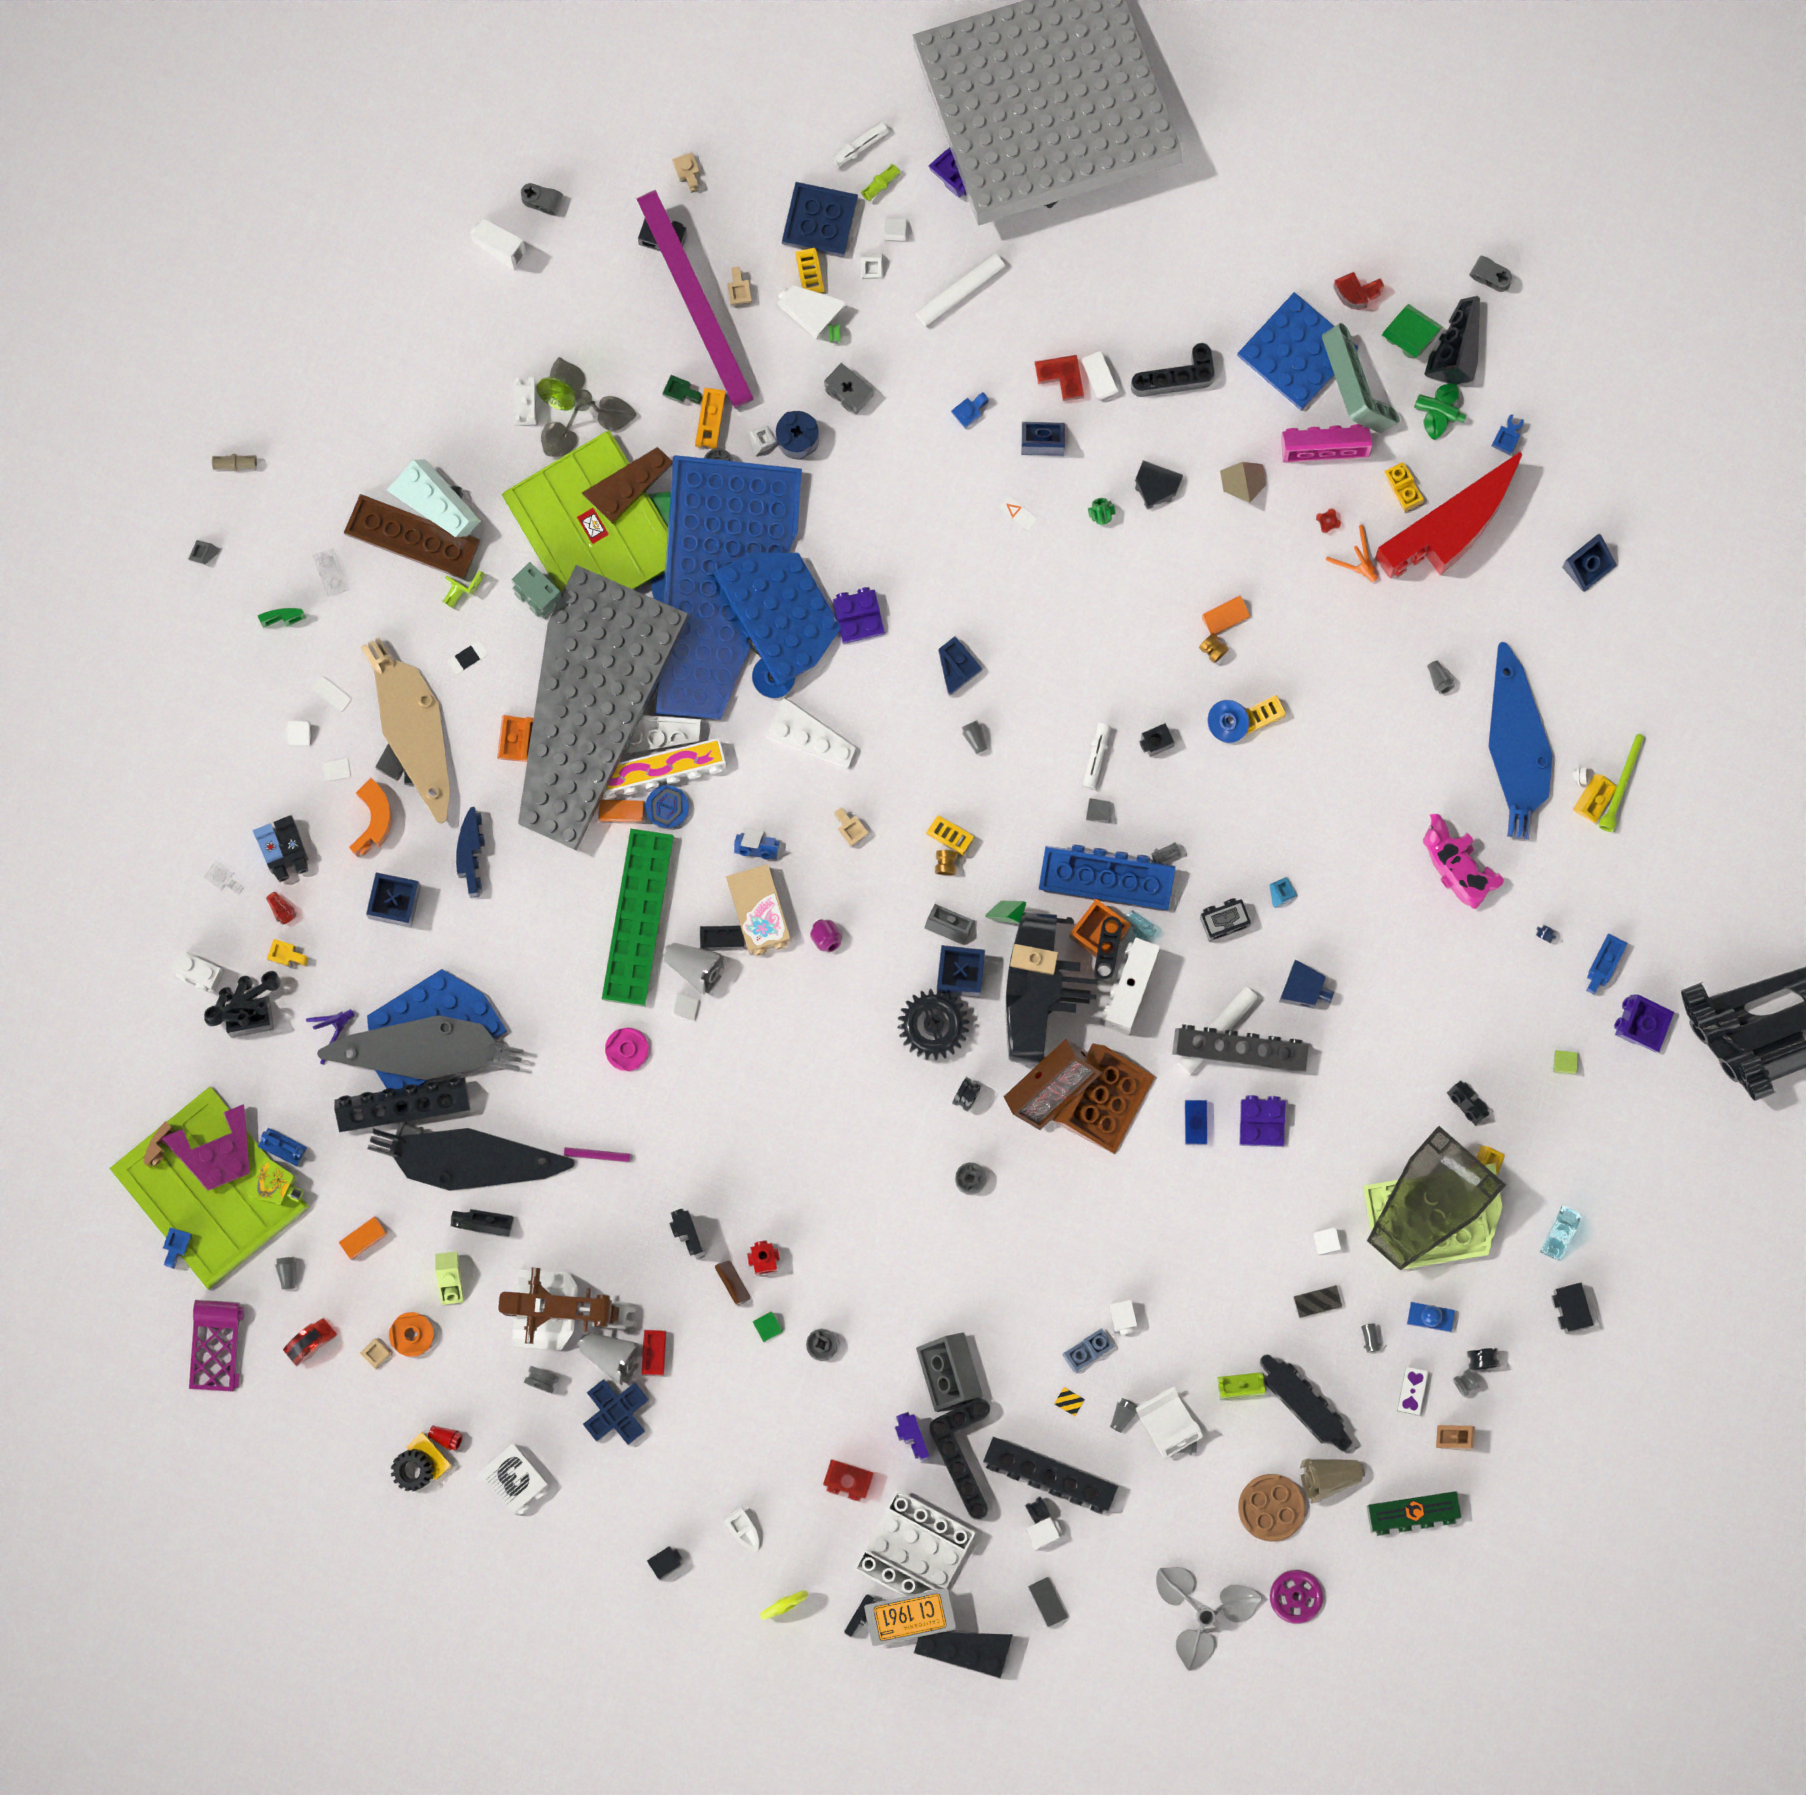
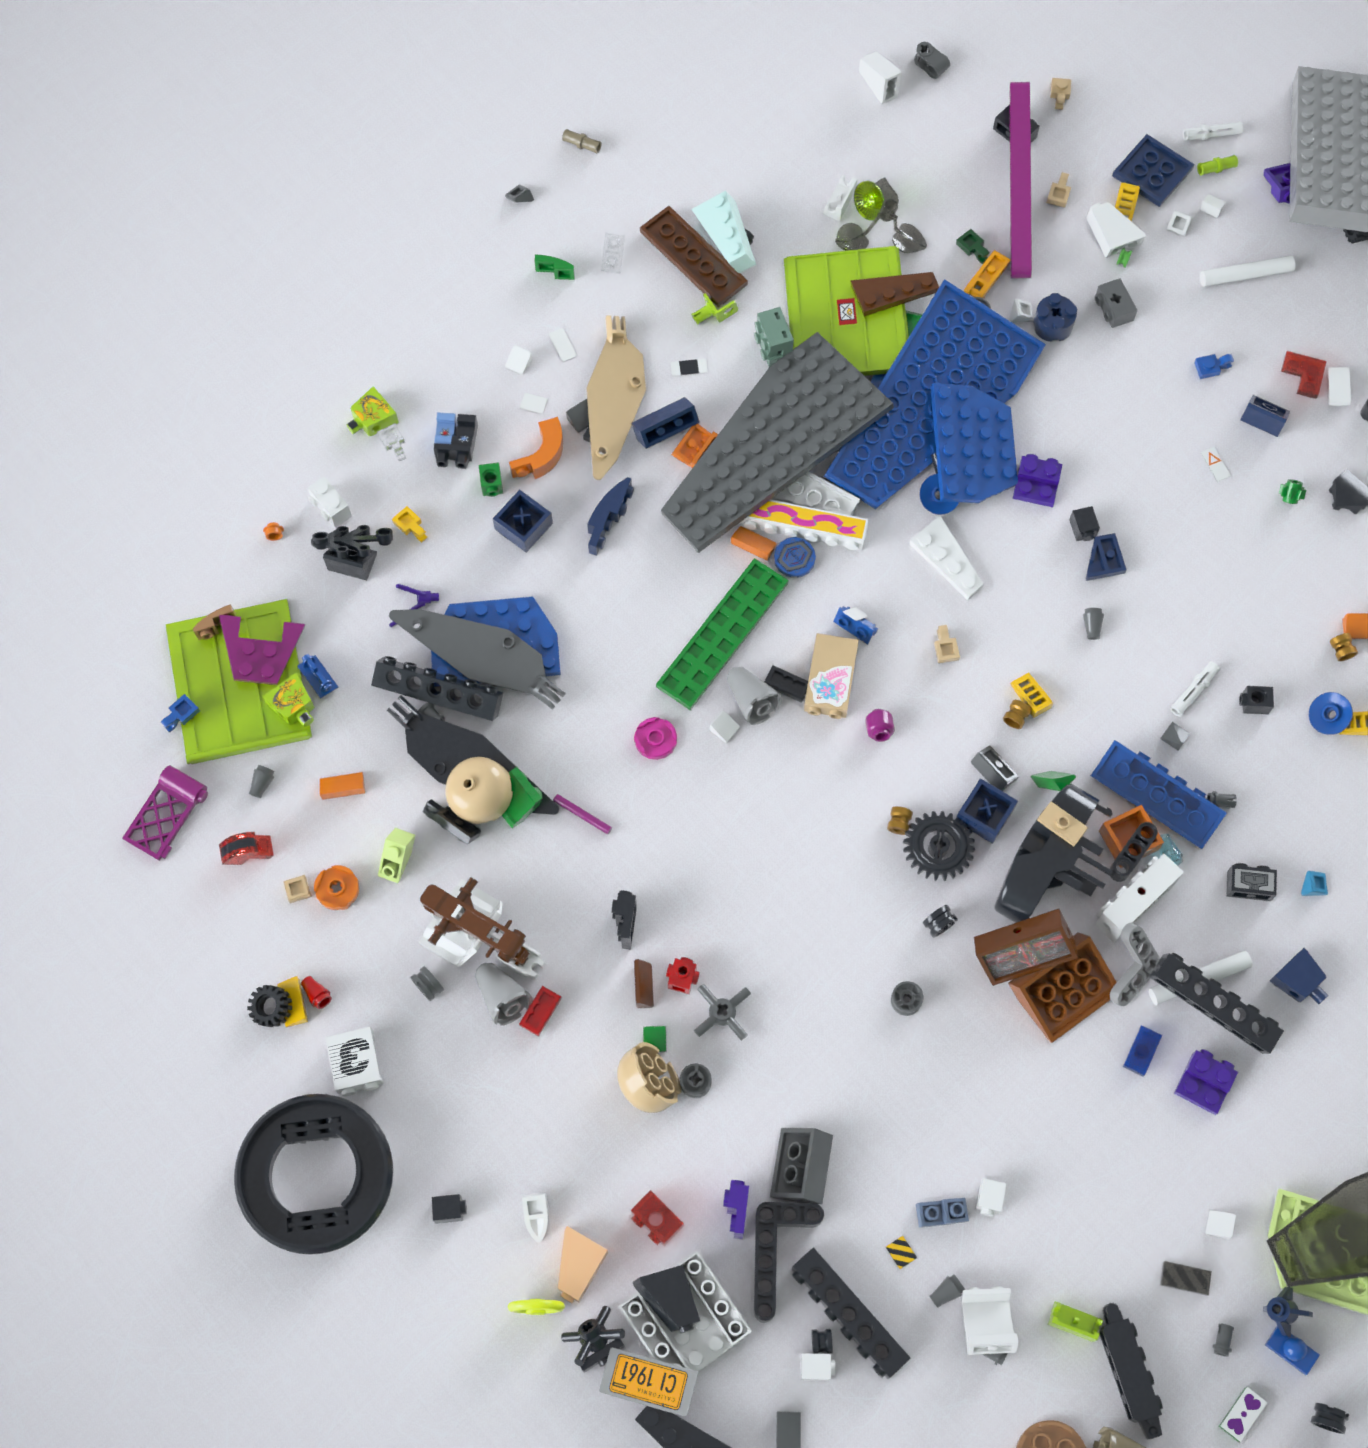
camera: 25 degrees right, 10 degrees down
(159, 1026) = (273, 531): none -> orange plate
(187, 861) = (371, 413): none -> lime torso
(281, 909) = (426, 487): clear red cone -> none
(333, 865) = (489, 472): none -> green brick
(476, 731) = (665, 422): none -> dark blue brick
(505, 1185) = (487, 795): none -> tan cylinder
(505, 1549) = (313, 1119): none -> black piece
(529, 1171) = (524, 798): none -> green slope
(615, 1412) = (478, 1047): dark blue plate -> none
(772, 1369) = (639, 1079): none -> tan cylinder
(801, 1551) = (579, 1264): none -> light nougat slope
(822, 1268) = (729, 1005): none -> dark grey bar
(844, 1603) = (592, 1335): none -> black bar
(887, 1017) = (899, 820): none -> pearl gold wheel
(893, 1540) = (670, 1298): none -> black slope
(922, 640) = (1084, 524): none -> black brick
(1162, 1040) = (1143, 966): none -> light grey beam
(1409, 1289) = (1284, 1311): none -> dark blue brick
(1466, 1383) = (1301, 1433): dark grey wheel -> none

